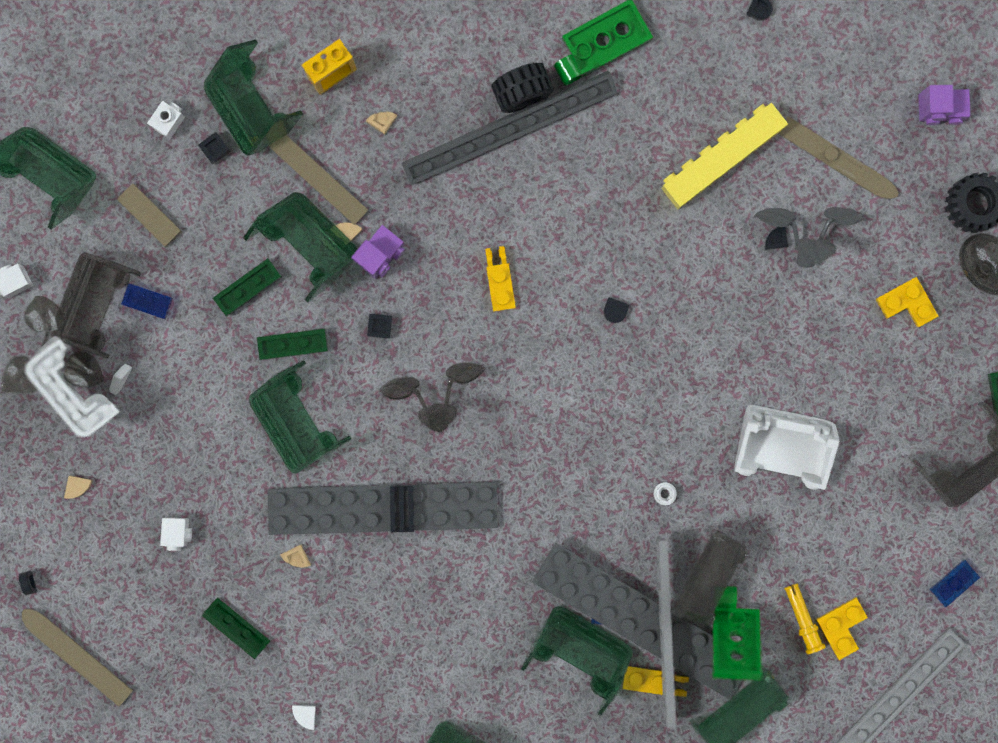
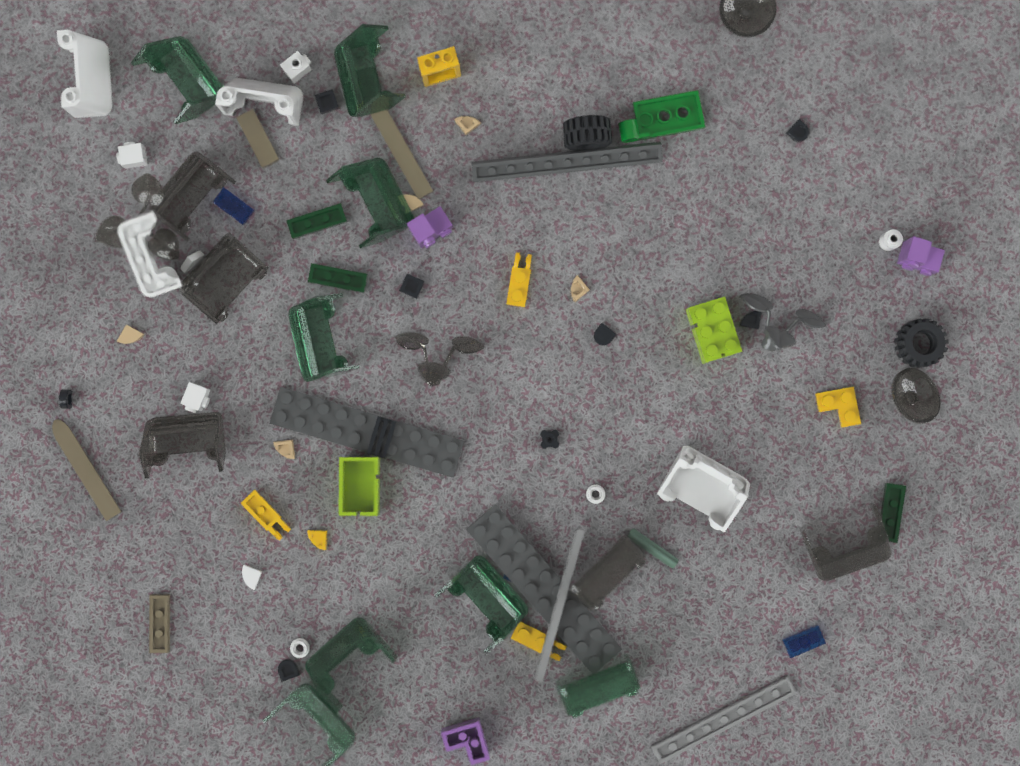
camera: 15 degrees right, 0 degrees up
(160, 386) = (222, 277): none -> clear smoke windscreen
(166, 158) = (285, 97): none -> white windscreen
(173, 581) = (182, 435): none -> clear smoke windscreen
(236, 628) = (219, 489): dark green plate -> none
(297, 639) = (264, 513): none -> yellow hinge
(367, 647) = (318, 538): none -> yellow tile
(394, 573) = (359, 486): none -> lime piece
(569, 267) = (578, 288): none -> tan tile
(589, 454) = (545, 435): none -> black plate
(724, 156) = (730, 240): light yellow brick -> none
(736, 622) = (618, 614): green hinge -> none
(740, 264) = (715, 330): none -> lime piece
(750, 534) = (653, 548): none -> sand green axle
(807, 628) = (674, 640): yellow pin -> none
(836, 625) = (697, 645): yellow plate -> none
(838, 159) = (821, 272): dark tan piece -> none
(898, 100) = (885, 240): none -> white brick

